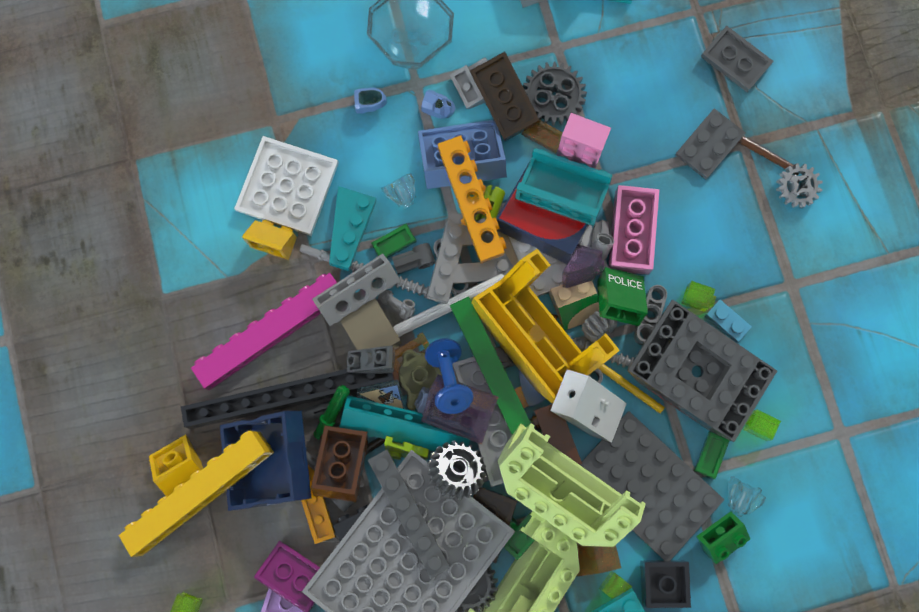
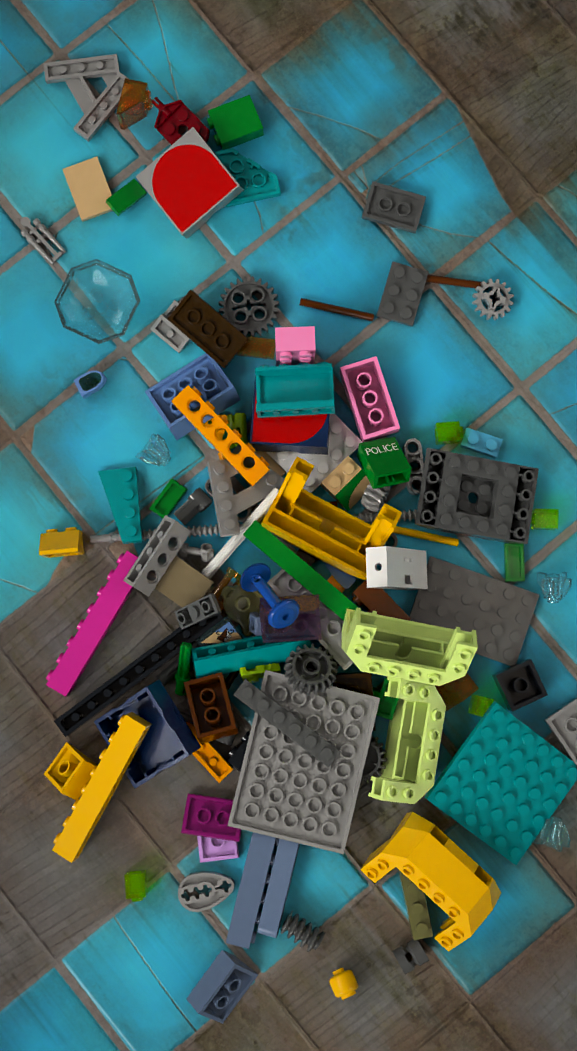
camera: 30 degrees left, 5 degrees up
(286, 185) = (52, 490): white plate -> none
(437, 105) = (152, 361): medium blue rock -> none
(582, 266) = (340, 452): clear purple slope -> none
(602, 238) = (346, 421): light grey piece -> none
(639, 132) = (336, 309): none -> reddish brown bar
(723, 537) = (551, 626): green brick -> none

